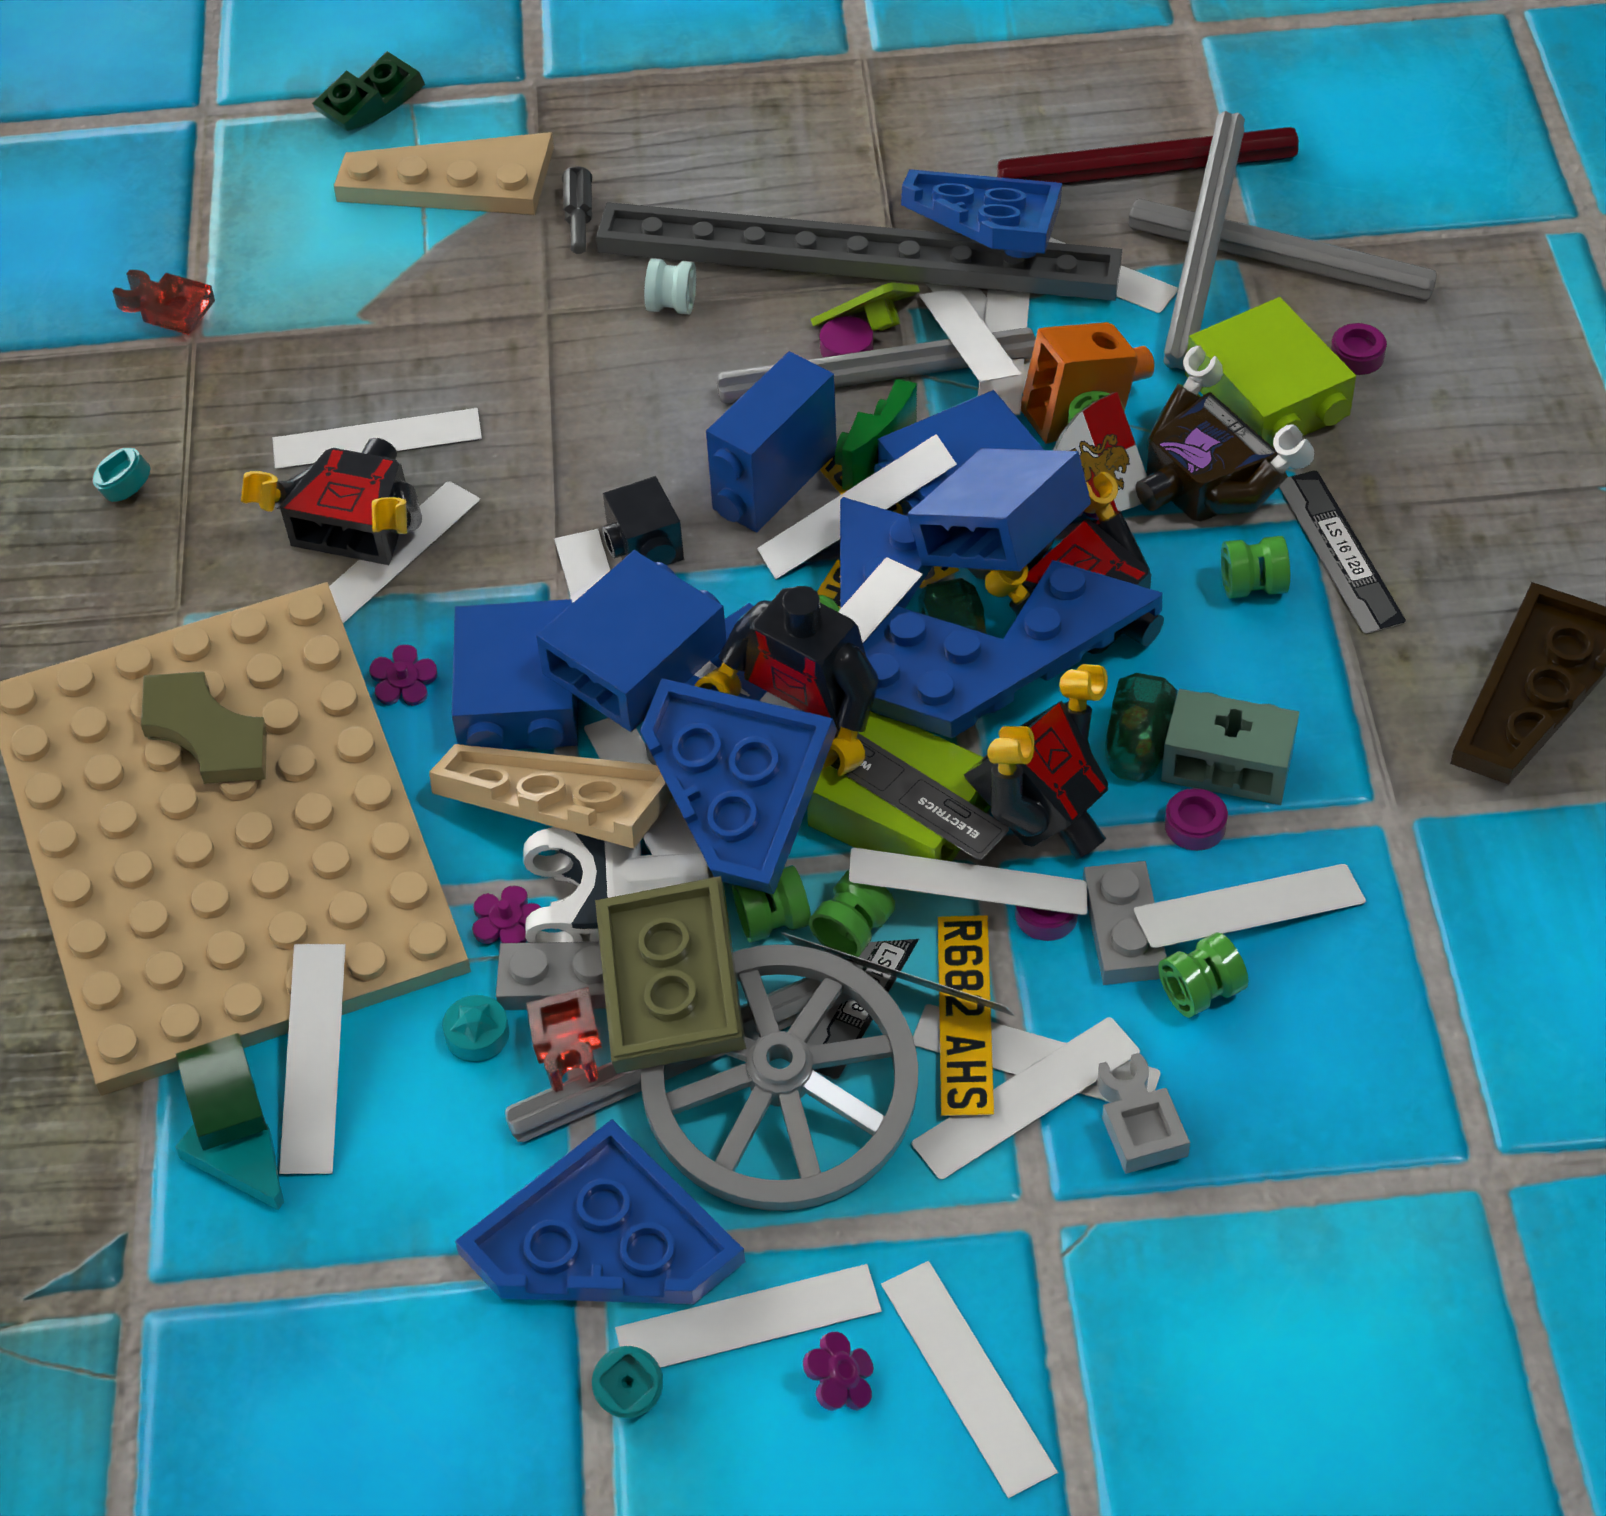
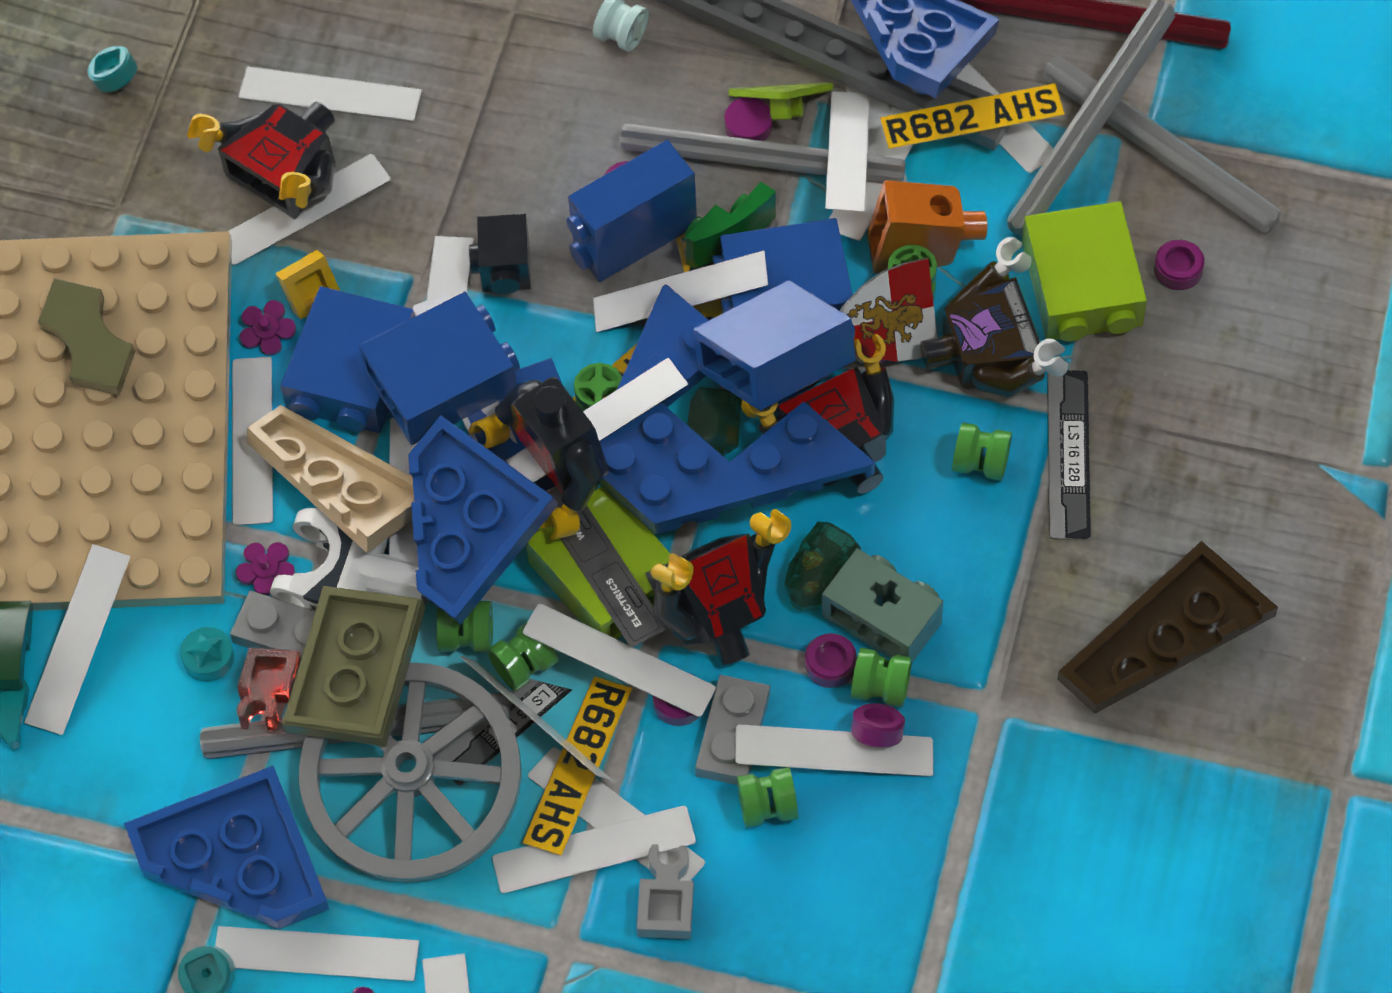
camera: 20 degrees right, 10 degrees up
(431, 614) = (302, 281): none -> yellow tile
(441, 818) = (250, 470): none -> white sticker
(1081, 270) = (972, 116): none -> yellow sticker
(1258, 814) = (881, 677): none -> bright green wheel
(1286, 863) = (877, 725): none -> magenta tile

